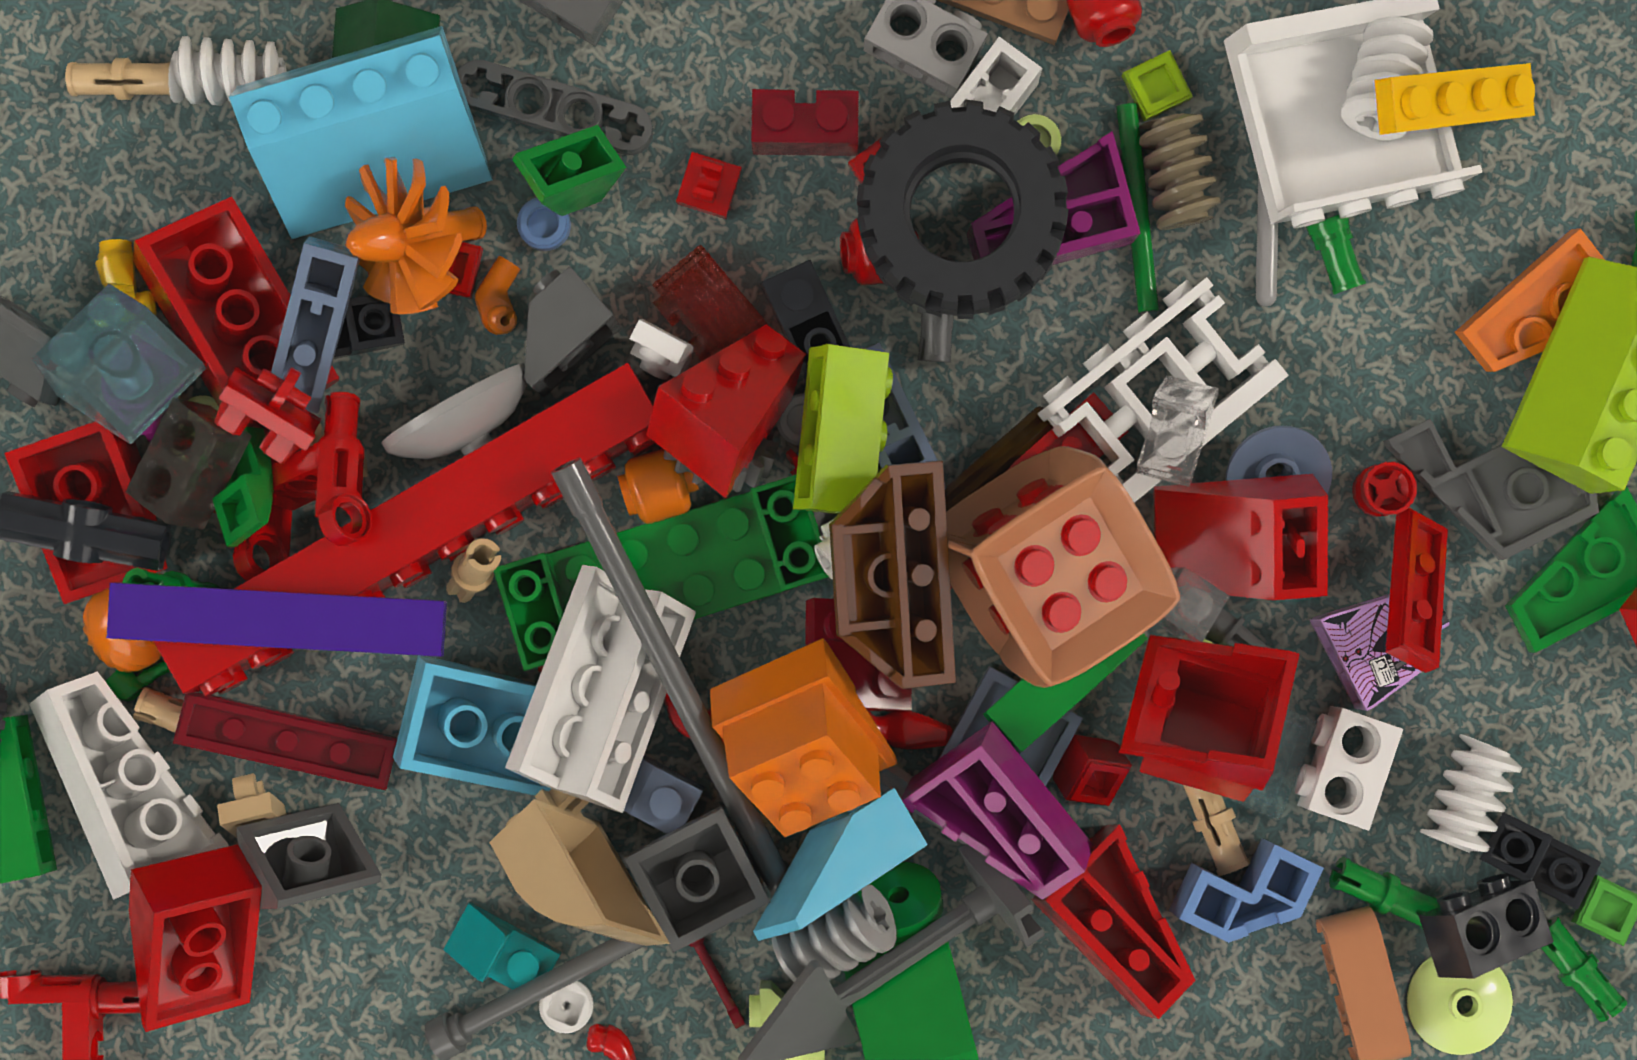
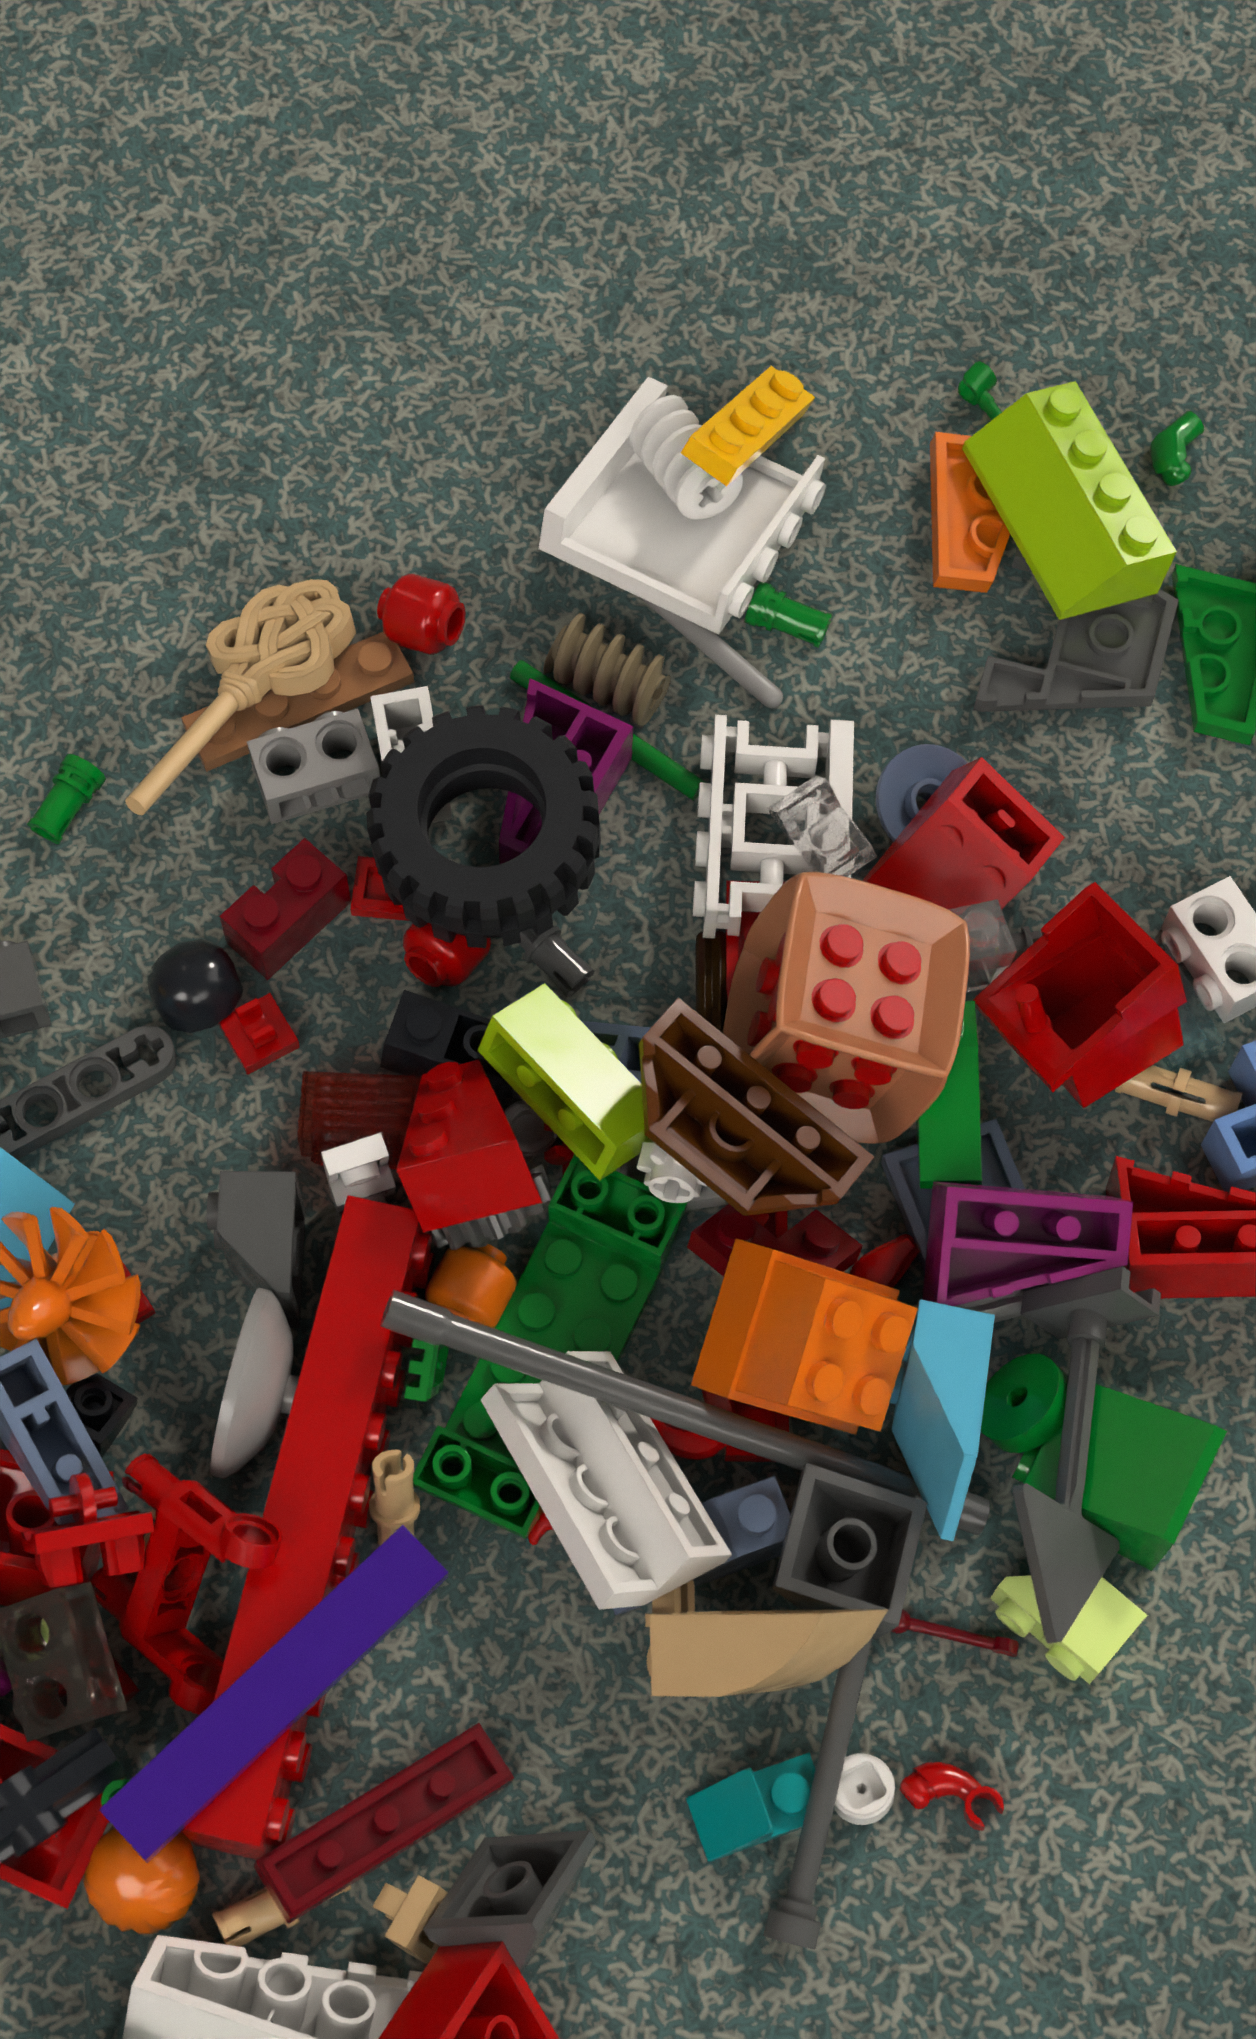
camera: 45 degrees left, 20 degrees down
(129, 685) = (200, 1926): green hand -> none
(248, 495) = (139, 1634): green slope -> none
(464, 724) = (528, 1638): medium azure slope -> none
(493, 300) = (174, 1292): orange arm -> none
(542, 227) = (154, 1194): medium blue tile -> none
(560, 517) = (432, 1368): none -> green tile
(571, 170) = (138, 1116): green slope -> none
(700, 114) = (194, 986): none -> black hair
(840, 936) = (1009, 1463): light grey piece -> none
(1091, 770) = (1049, 1153): red slope -> none
(1157, 85) = (523, 634): lime tile -> none
(1357, 648) = (1141, 844): lavender torso -> none
(1393, 486) = (1020, 724): red wheel -> none
(1417, 591) = (1122, 771): red tile -> none

